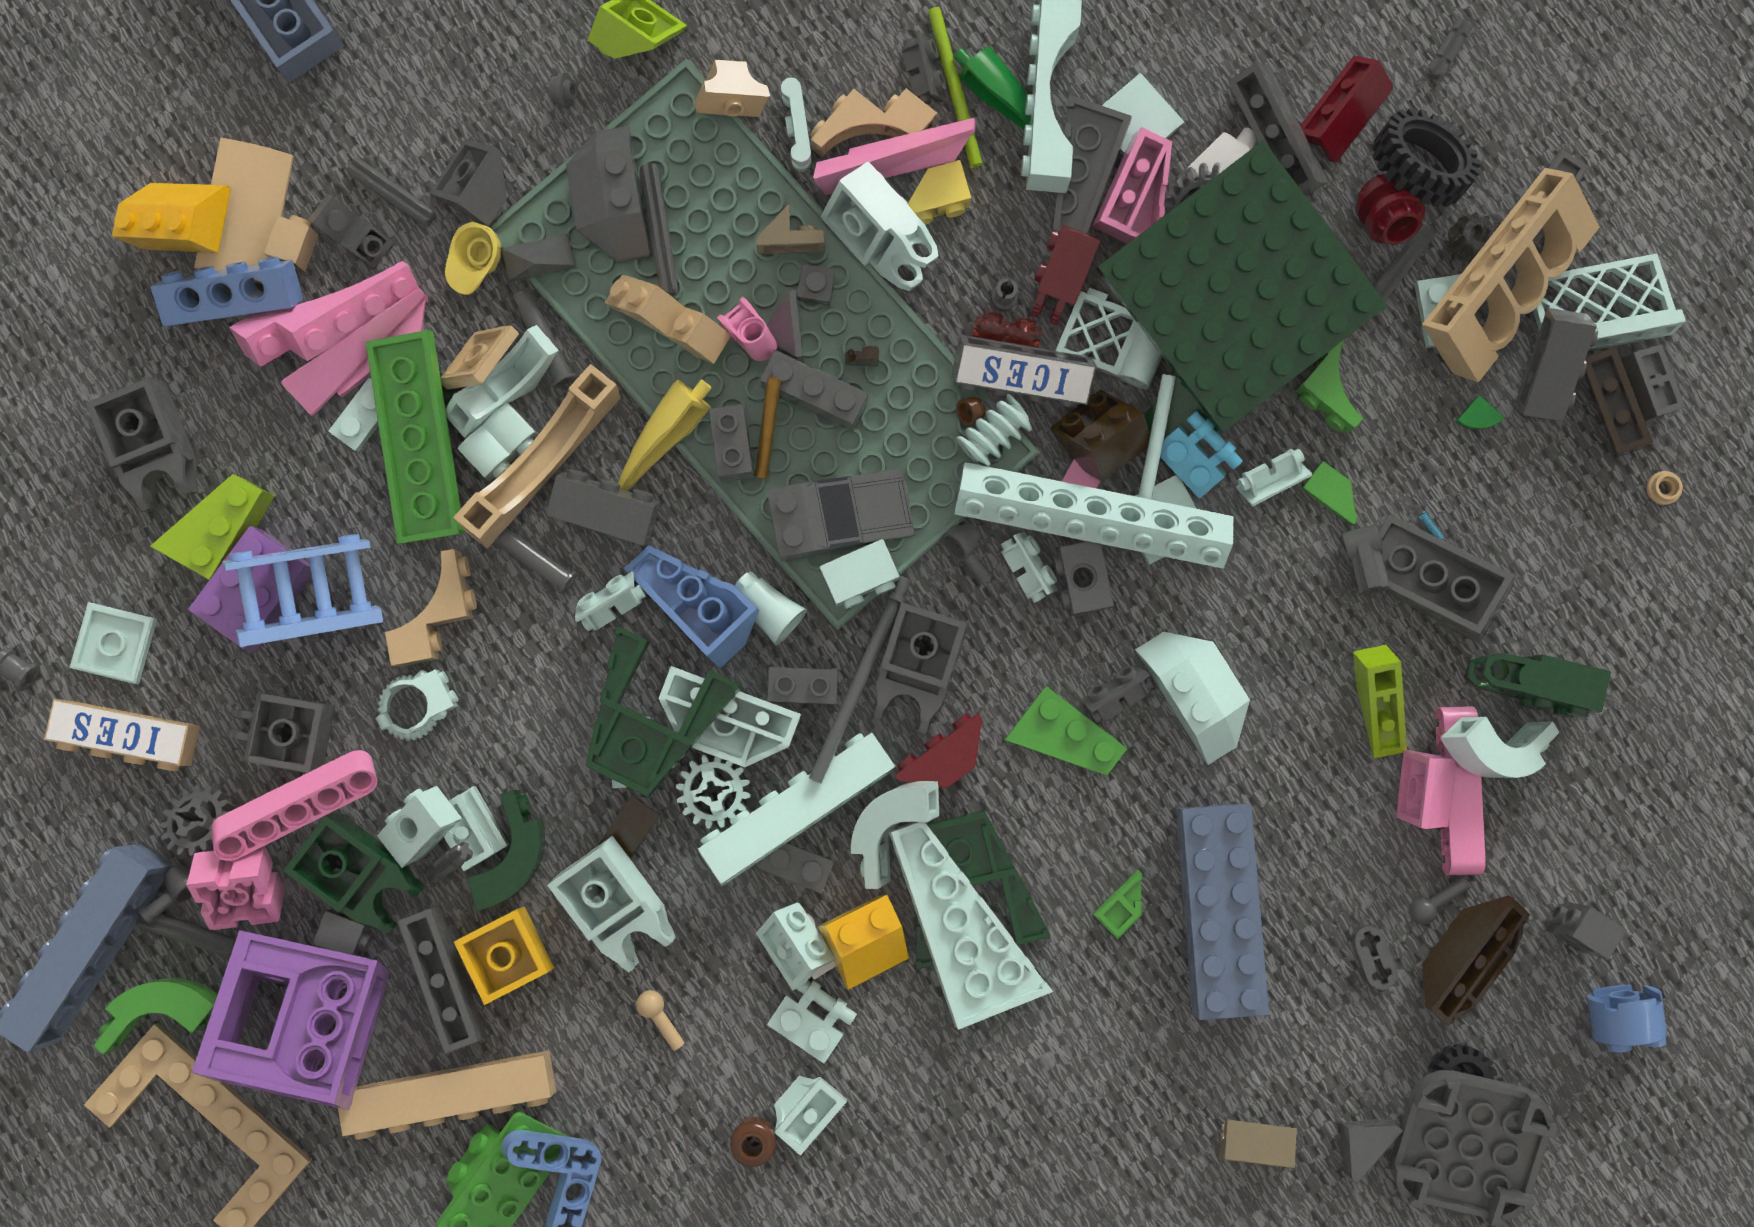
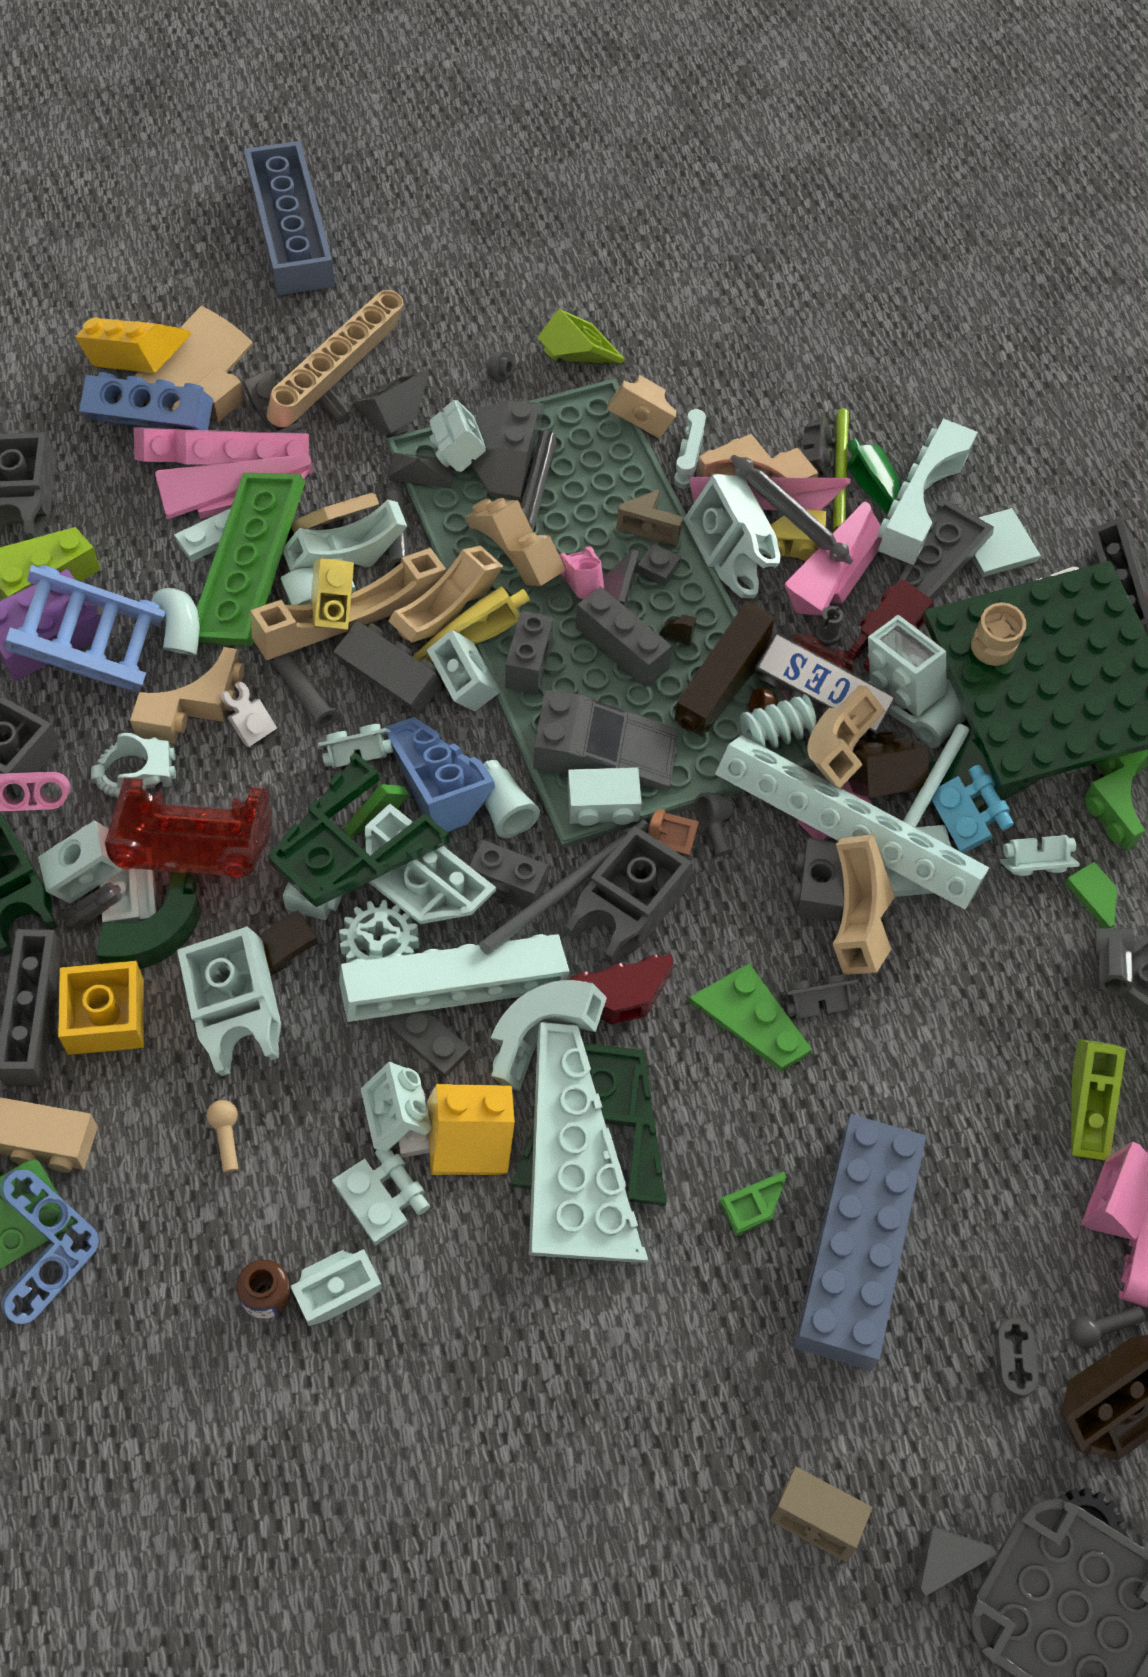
camera: 20 degrees right, 25 degrees down
(383, 533) = (180, 619): none -> light aqua cylinder
(392, 169) = (334, 358): none -> tan beam
(471, 257) = (368, 446): light yellow piece -> none
(496, 613) = (250, 718): none -> white plate
(503, 769) = (185, 837): none -> clear red windscreen
(519, 460) = (331, 593): none -> light yellow slope
(560, 215) = (456, 436): none -> light aqua brick
(628, 412) = (464, 581): none -> tan arch
(657, 659) = (374, 805): none -> bright green tile
(676, 486) = (463, 670): none -> light aqua brick
(767, 426) = (568, 646): pearl gold bar -> none
(925, 397) = (725, 669): none -> dark brown slope
(927, 182) = (791, 509): none -> dark grey wheel
(933, 579) = (673, 831): none -> nougat tile
(990, 215) = (829, 581): none -> bright pink wedge
(1037, 576) = (776, 866): light aqua hinge -> none
(1053, 435) = (839, 731): none -> tan arch
(1096, 327) = (907, 665): none -> light aqua piece
(1132, 586) = (867, 895): none -> tan arch
(1137, 188) = (983, 572): bright pink wedge -> none
(1180, 282) = (998, 634): none -> tan wheel
(1198, 690) = (905, 1027): light aqua wedge -> none

